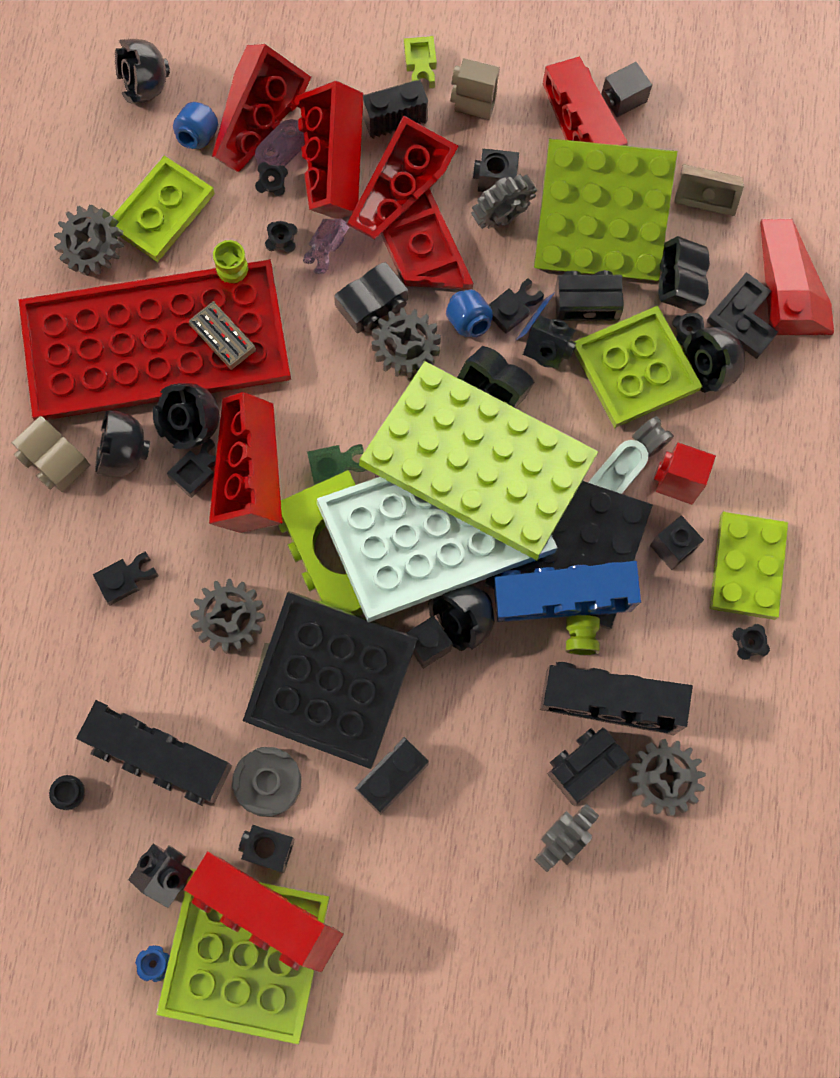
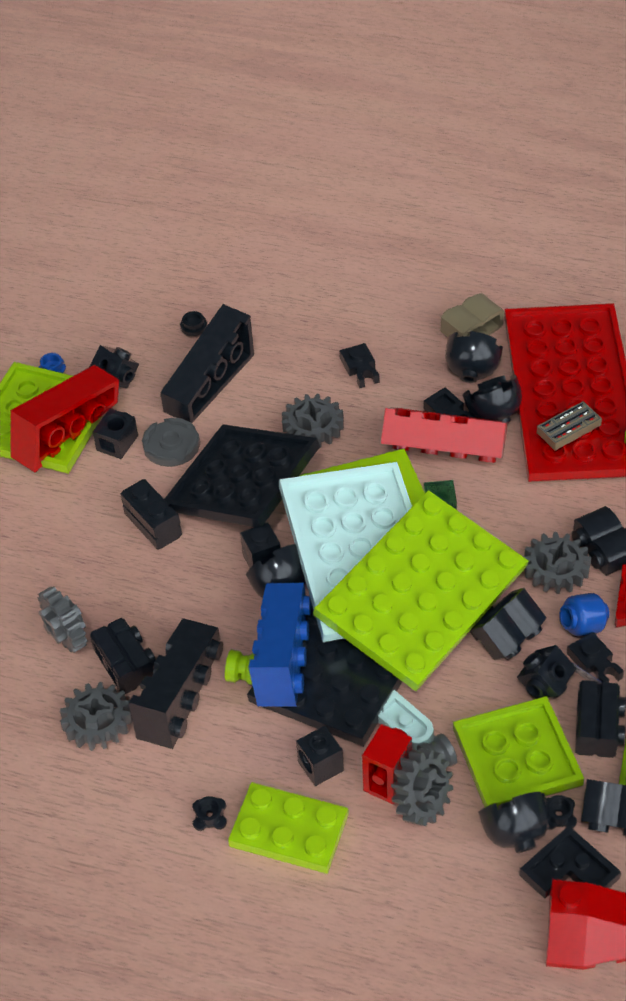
camera: 105 degrees right, 25 degrees down
(705, 437) = (422, 786): none -> dark grey gear

